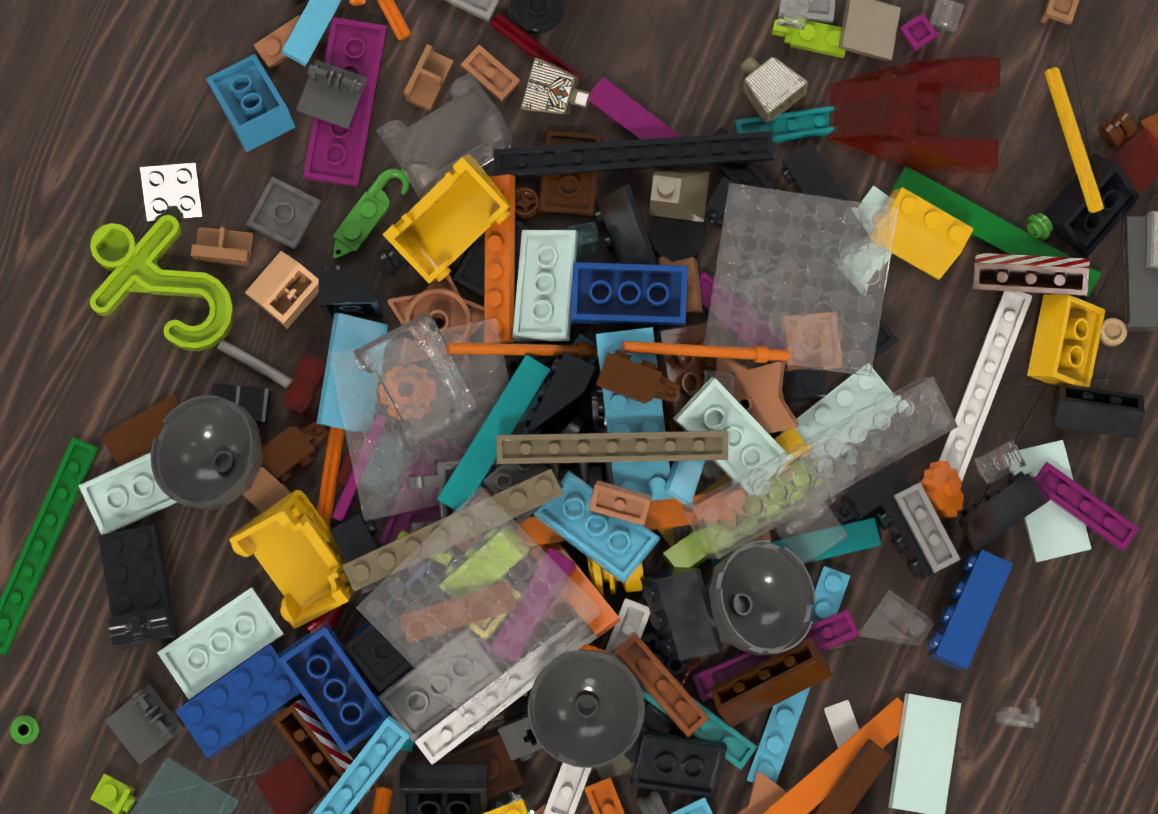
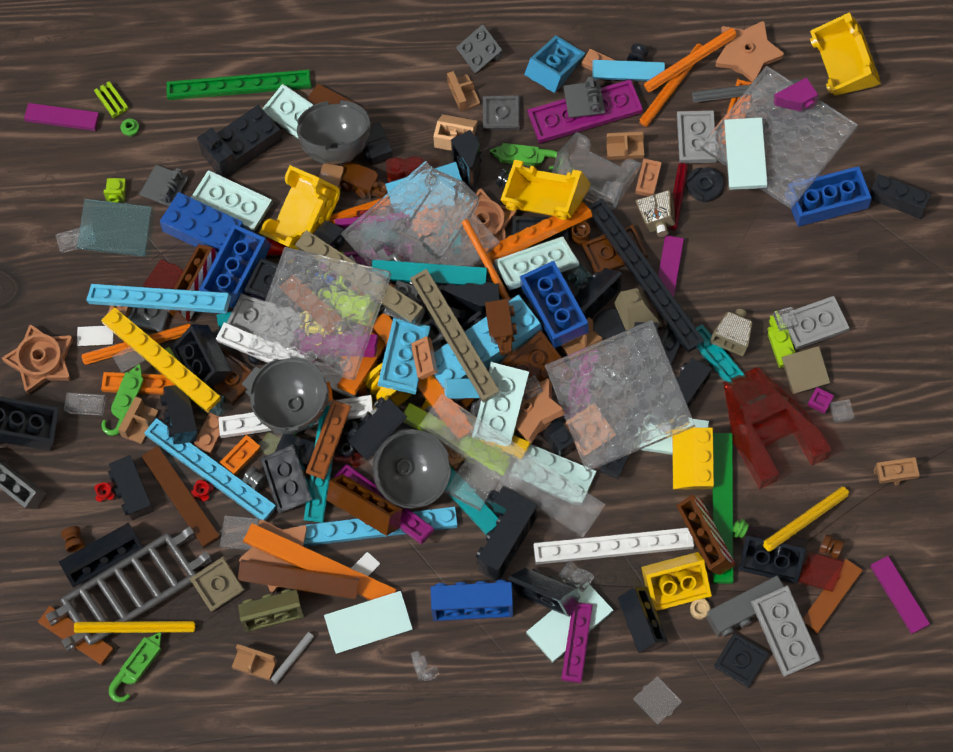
camera: 65 degrees right, 15 degrees down
(137, 270) = (423, 53): lime piece -> none
(254, 363) = (404, 137): light grey bar -> none
(758, 354) = (560, 394): orange bar -> none
(897, 622) = (443, 565): clear wing -> none
(926, 527) = (505, 540): light grey plate -> none
(943, 489) = (537, 545): orange plant -> none

